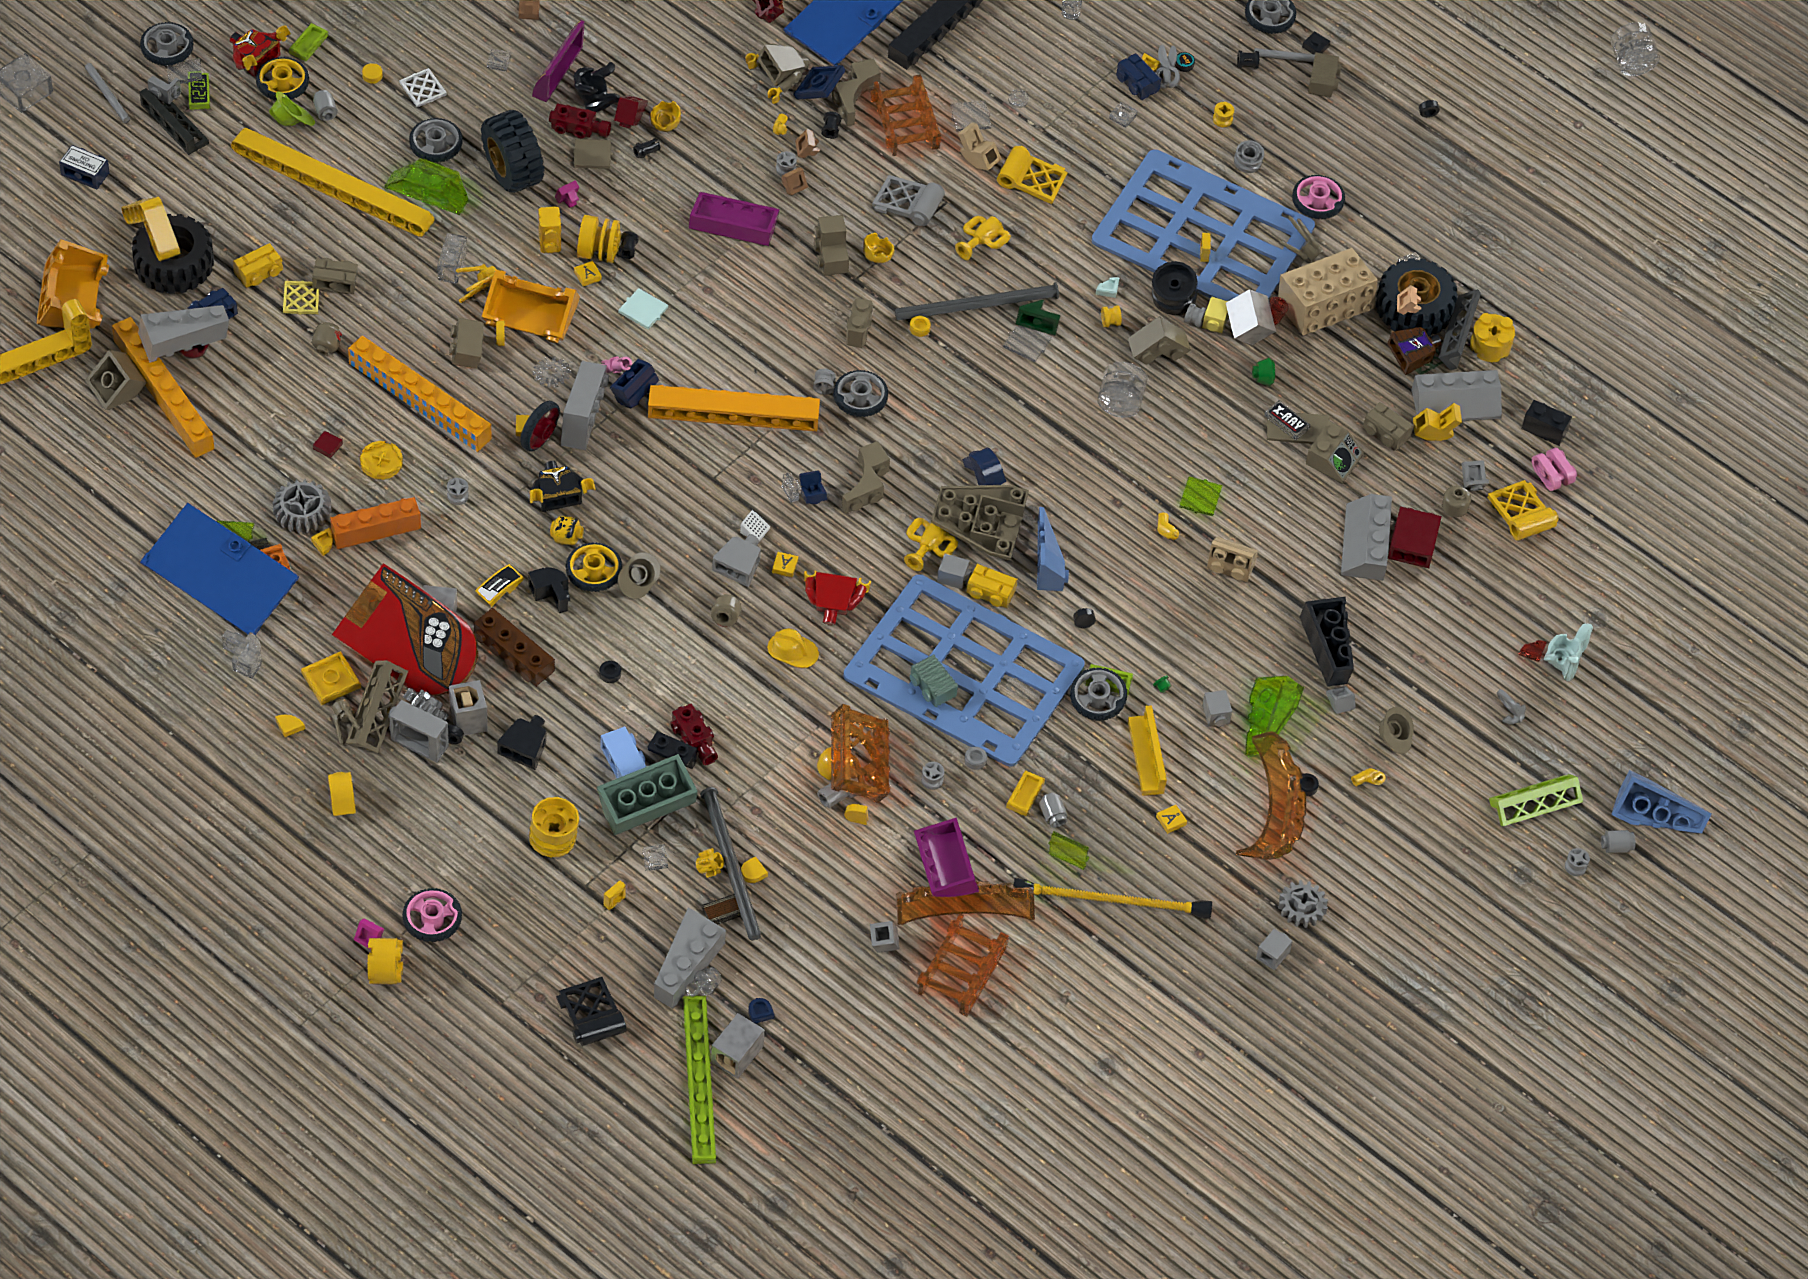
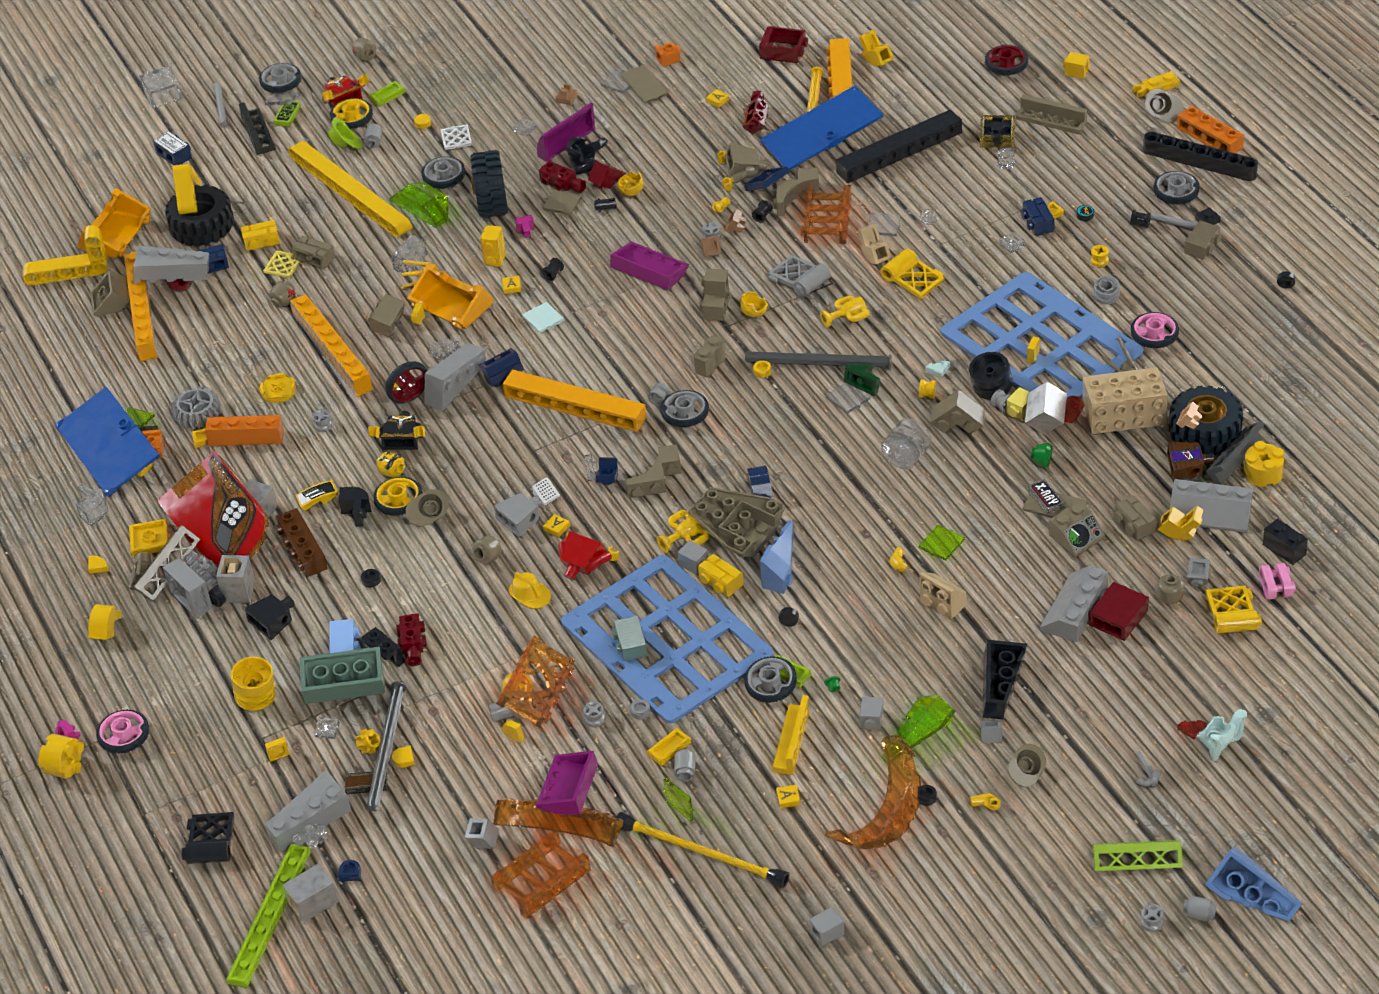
camera: 30 degrees right, 10 degrees down
(163, 90) = (258, 107): light grey bracket -> none
(327, 444) = (243, 369): dark red tile -> none
(598, 238) = (527, 258): yellow wheel -> none
(617, 364) = (491, 349): bright pink pin -> none
(1168, 66) = (1068, 212): light grey piece -> none
(1303, 904) = (872, 894): light grey gear -> none

